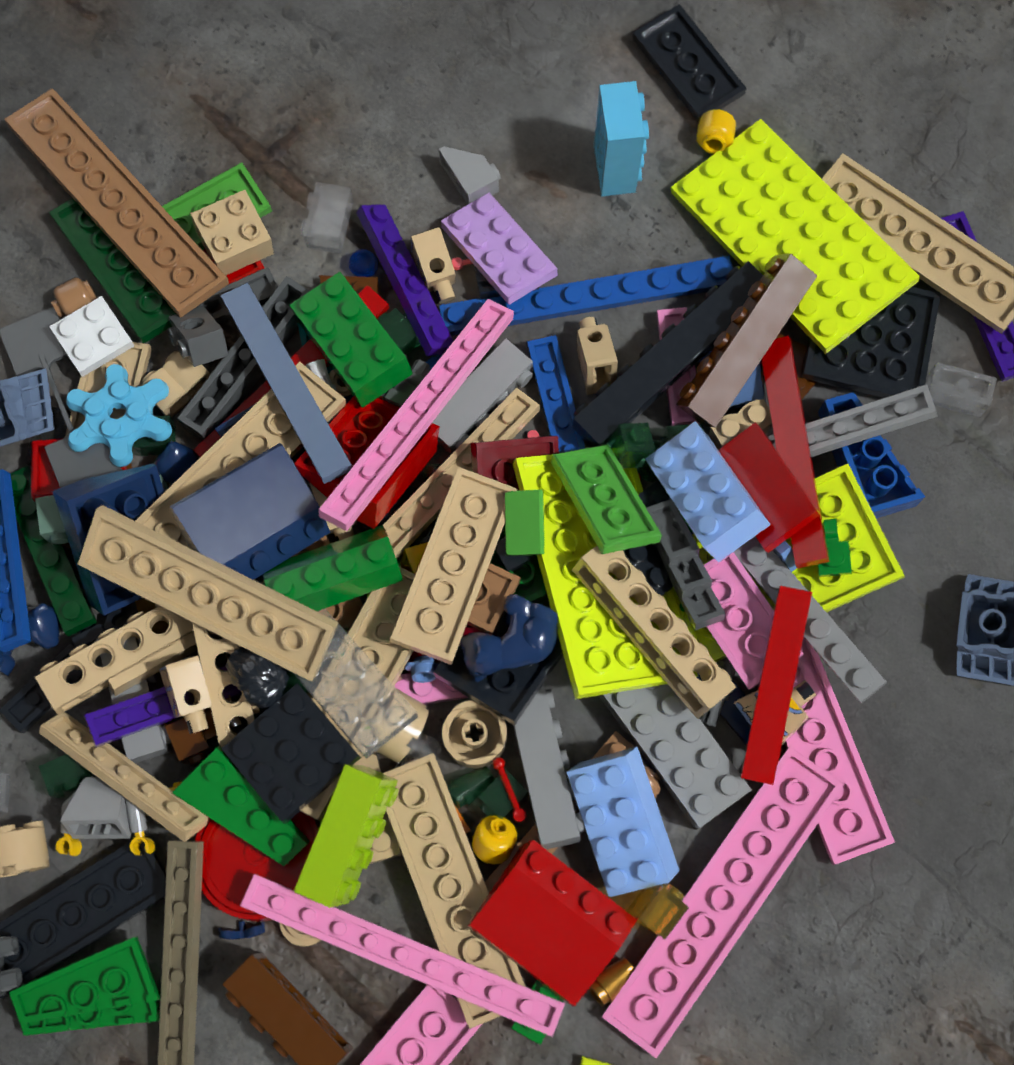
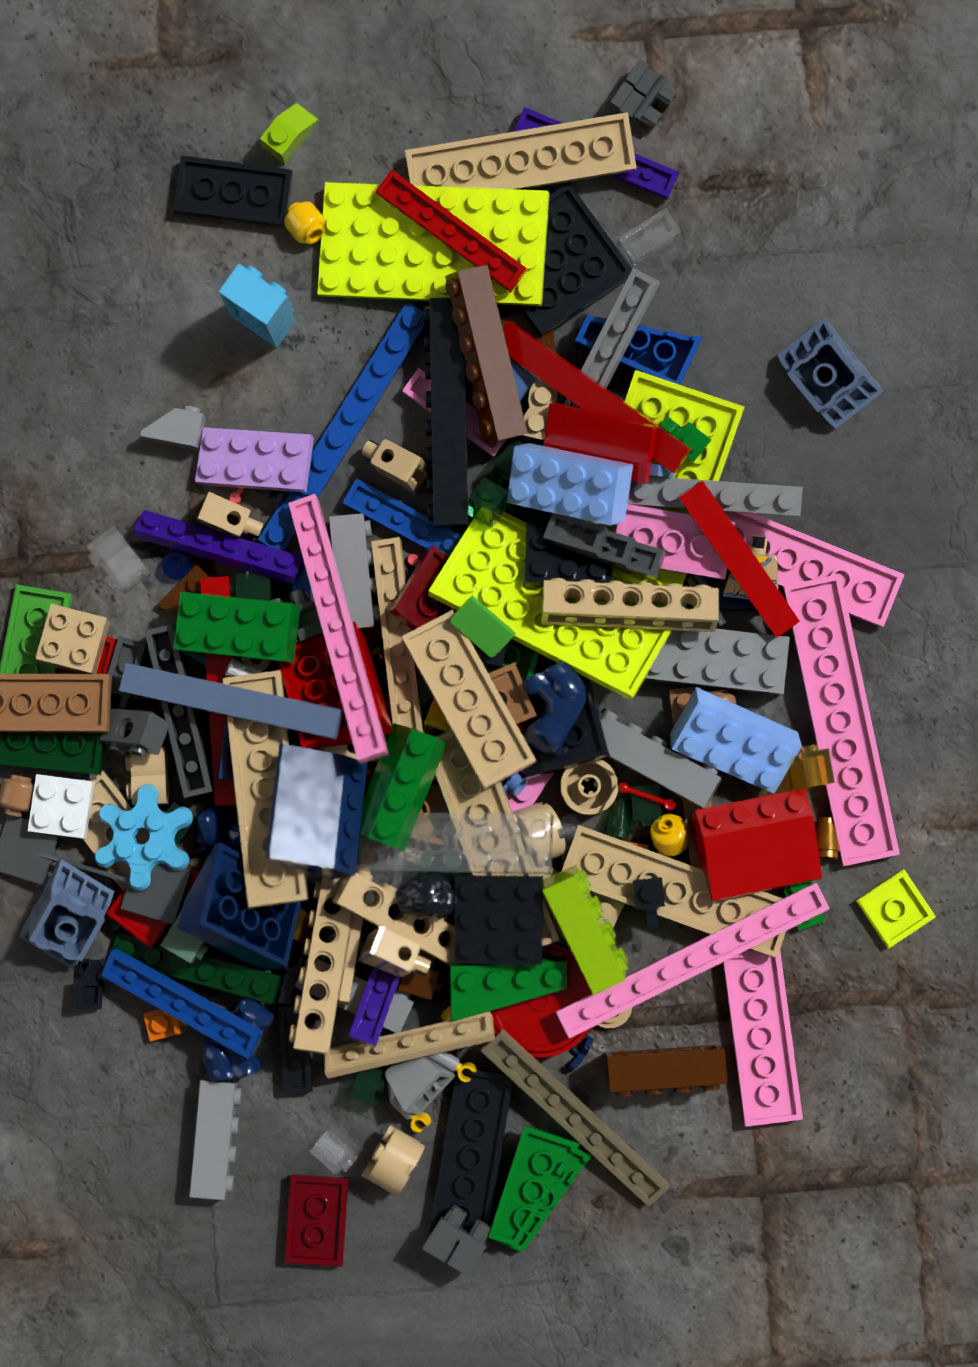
camera: 45 degrees left, 10 degrees up
(207, 593) = (345, 883): tan plate -> none
(425, 867) = (649, 895): none -> black plate
(605, 499) = (513, 556): bright green tile -> none
(770, 62) = (288, 132): none -> lime slope
(816, 233) = (450, 230): none -> red tile

